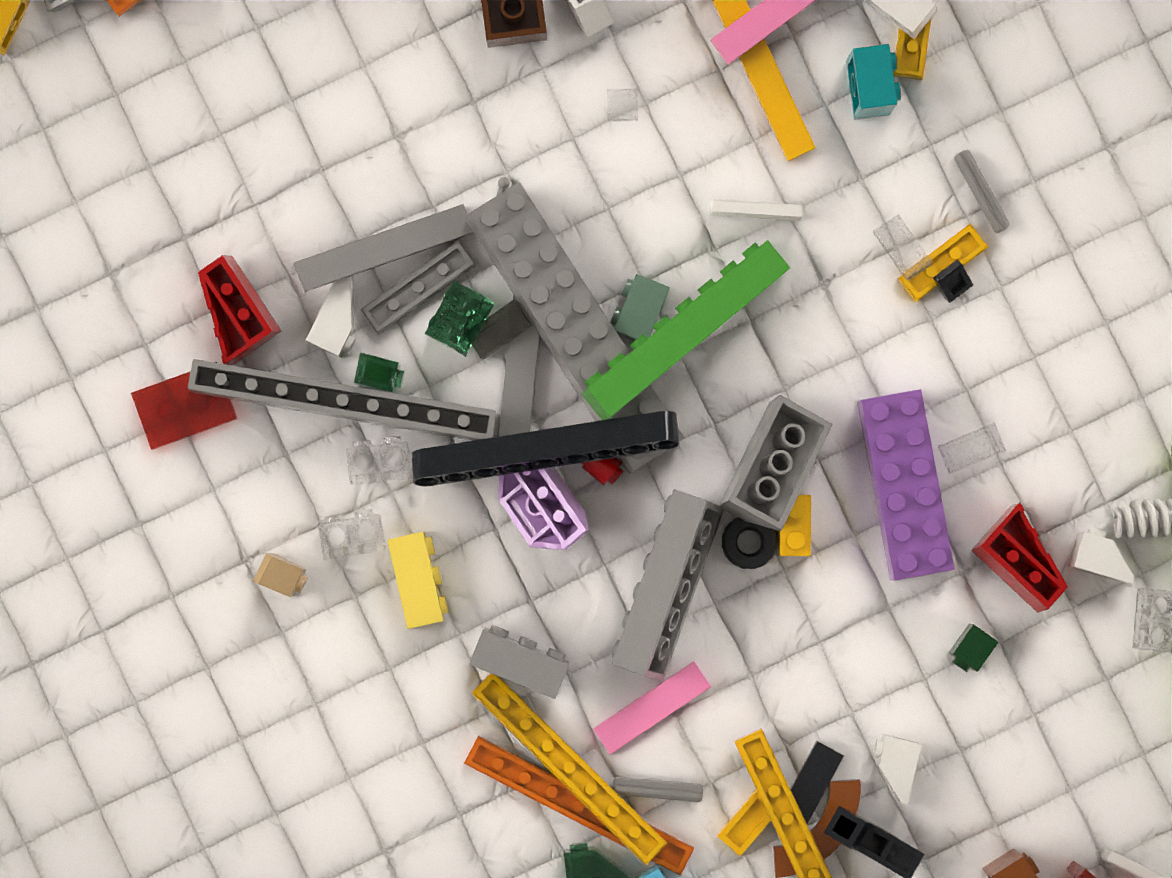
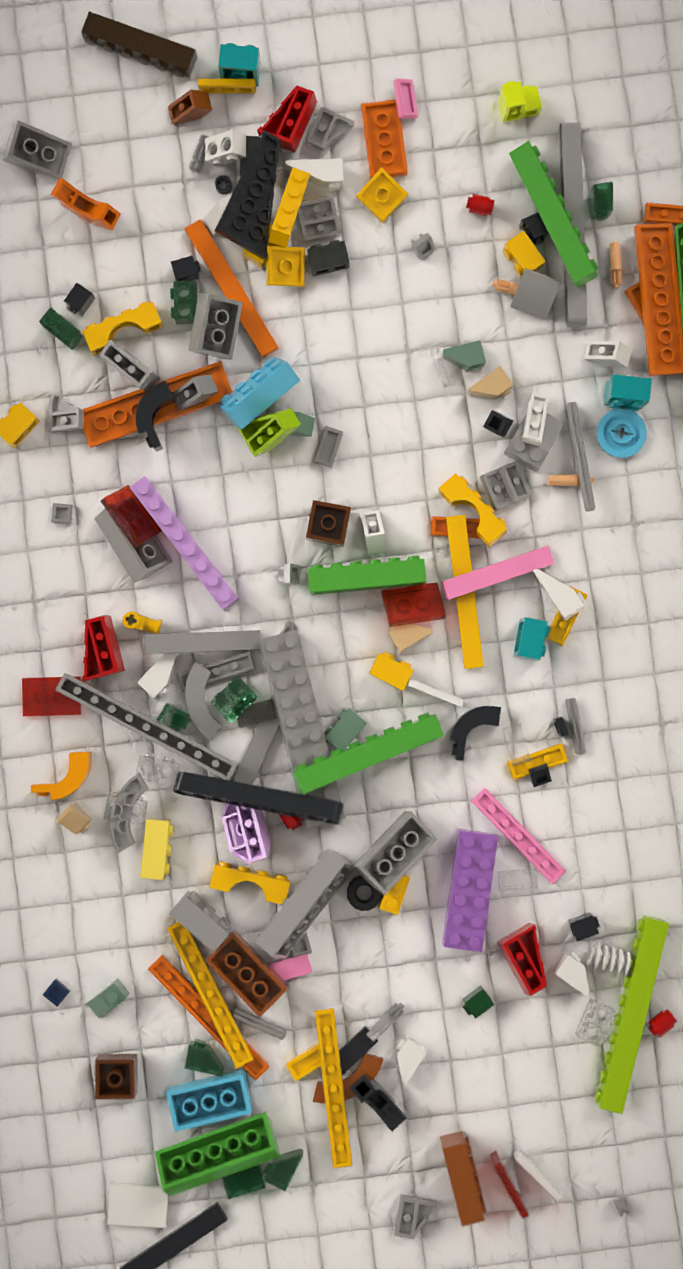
camera: 15 degrees right, 0 degrees up
(109, 128) = (62, 513): none -> light grey tile
(214, 95) = (131, 516): none -> clear red tile
(228, 131) = (138, 561): none -> light grey slope
(260, 517) = (78, 772): none -> light orange arch
(285, 250) = (142, 623): none -> yellow connector
(307, 111) = (184, 543): none -> lavender brick
(339, 844) = (56, 992): none -> dark blue tile
(348, 538) = (122, 810): none -> light grey tile
(404, 342) = (196, 701): none -> light grey tile
(419, 827) = (108, 998): none -> sand green slope
(482, 104) = (291, 574): none -> light grey tile
(535, 587) = (226, 876): none -> yellow arch
(597, 68) = (366, 576): none -> bright green brick
(615, 718) = (247, 973): none -> dark orange brick
(680, 88) = (413, 604): none -> clear red tile
(680, 199) = (391, 671): none -> yellow brick
(683, 654) = (302, 947): none -> light grey tile
(686, 137) = (407, 635): none -> tan slope
(834, 222) = (466, 722): none -> black arch
(845, 722) = (389, 1018): none -> light grey piece
(951, 383) = (518, 836): none -> bright pink tile
(960, 198) = (560, 726): none -> black tile
(1093, 483) = (584, 926): none -> black brick

